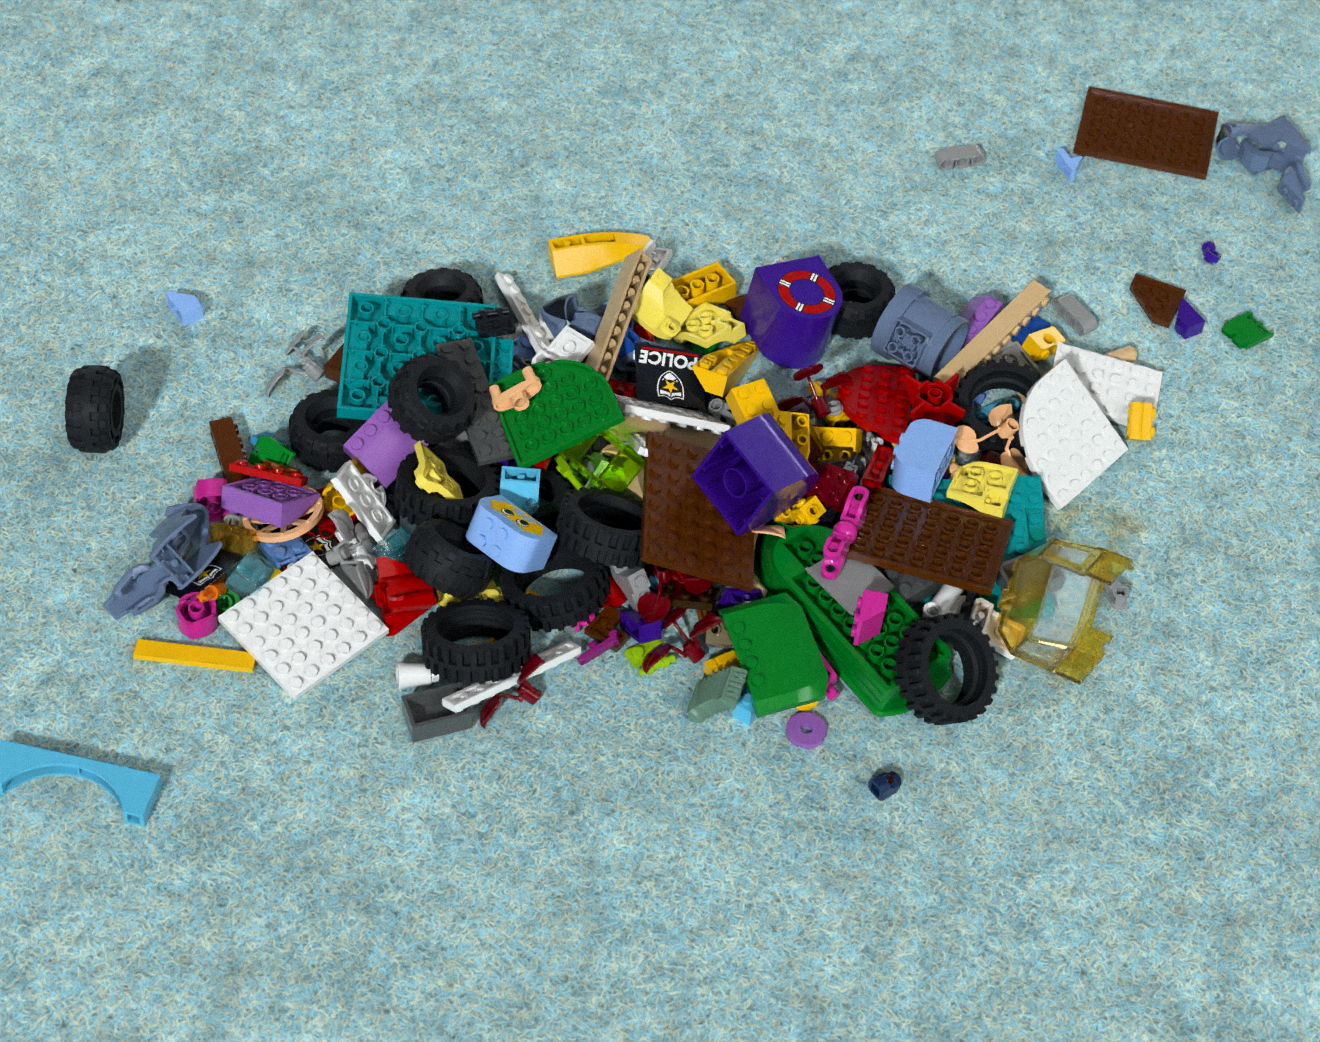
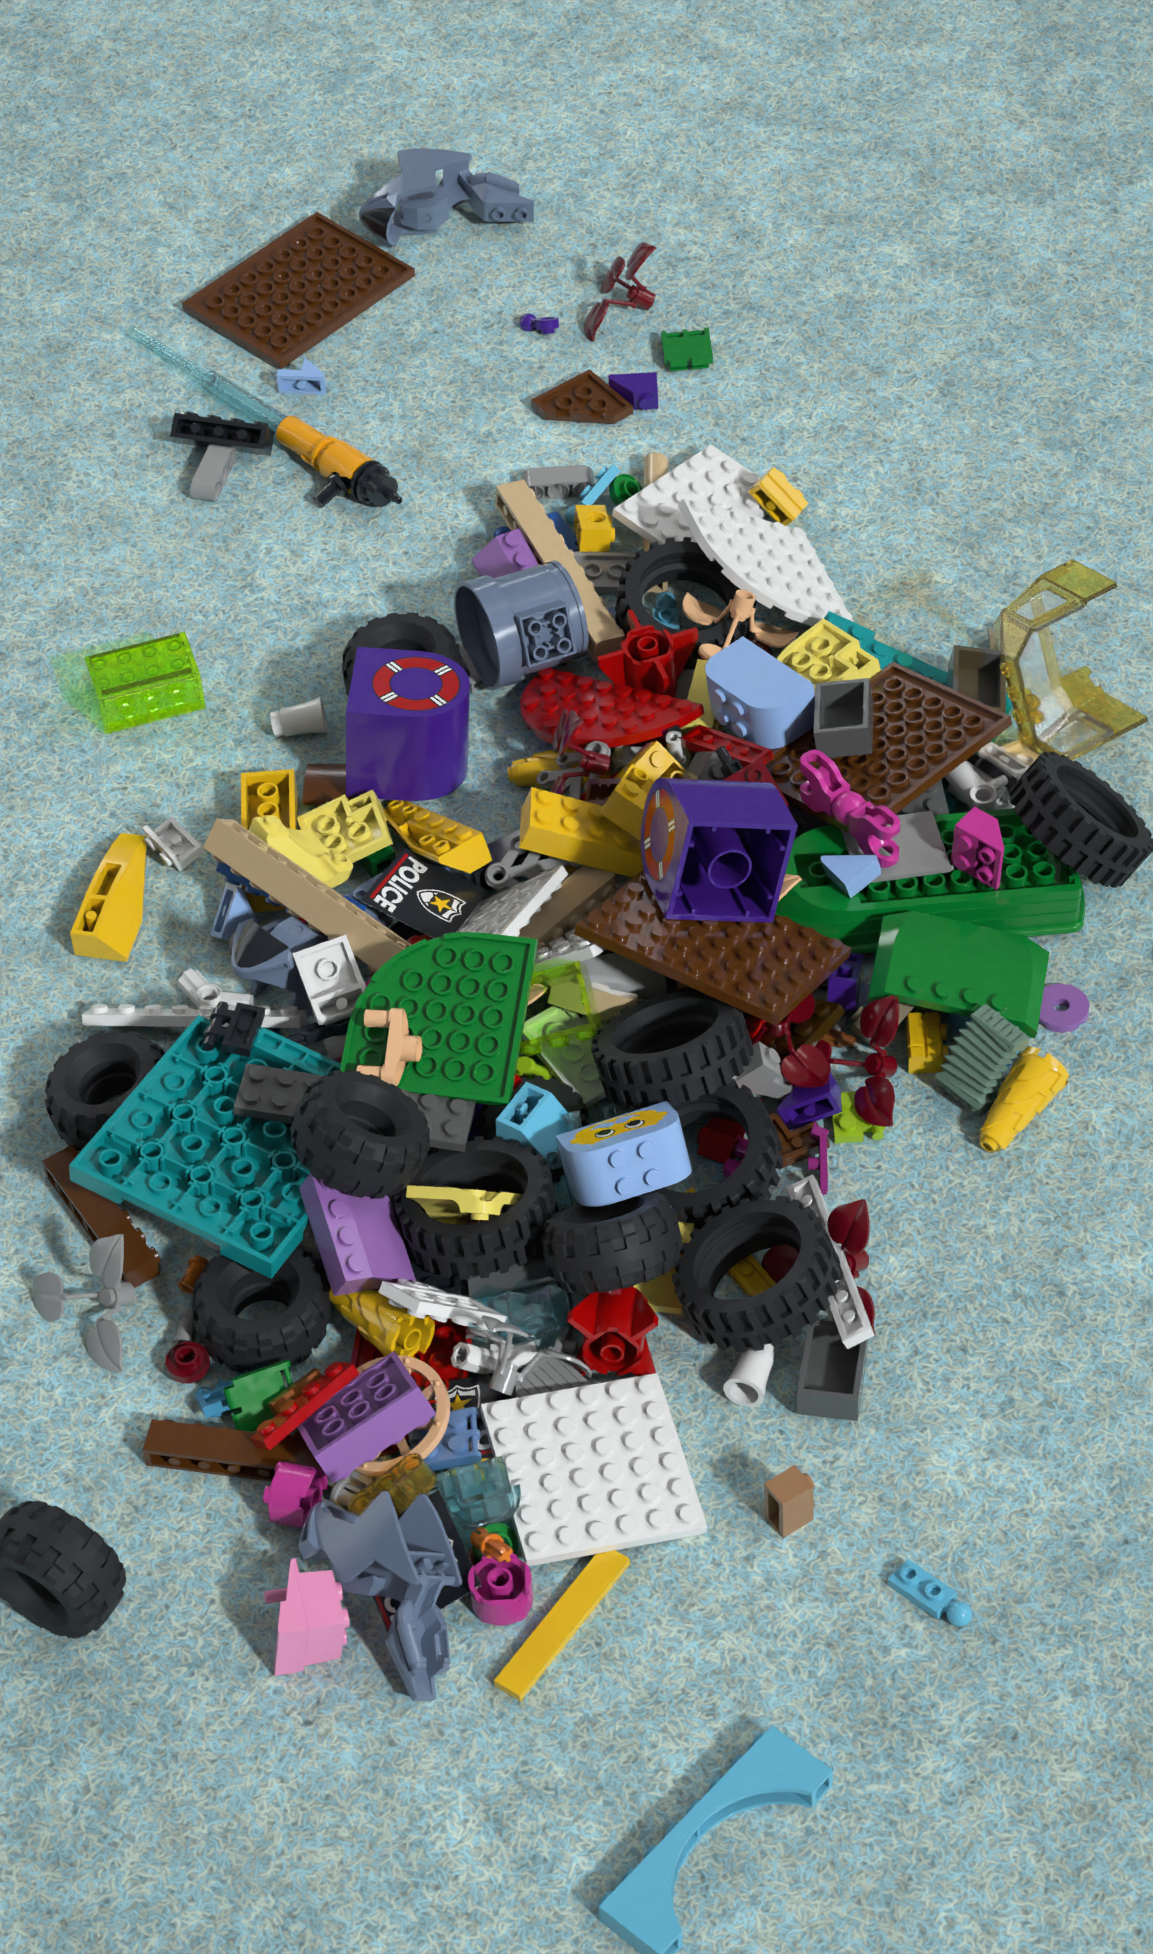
camera: 55 degrees left, 0 degrees up
(126, 534) = (309, 1620): none -> bright pink piece
(280, 418) = (187, 1362): none -> dark red plate
(301, 824) = (929, 1593): none -> medium azure plate
(324, 724) = (789, 1501): none -> medium nougat brick
(712, 731) = (1021, 1097): none -> yellow cone
(756, 205) = (145, 682): none -> clear neon green hose
(803, 560) = (851, 872): none -> light blue slope
(929, 506) = (844, 718): none -> dark grey piece
(989, 145) = (203, 431): none -> black brick
(1008, 206) = (337, 460): none -> piece
(1074, 332) = (590, 493): none -> medium azure plate
(1092, 344) = (623, 488): none -> green plate
(1272, 287) = (637, 295): none -> dark red plant

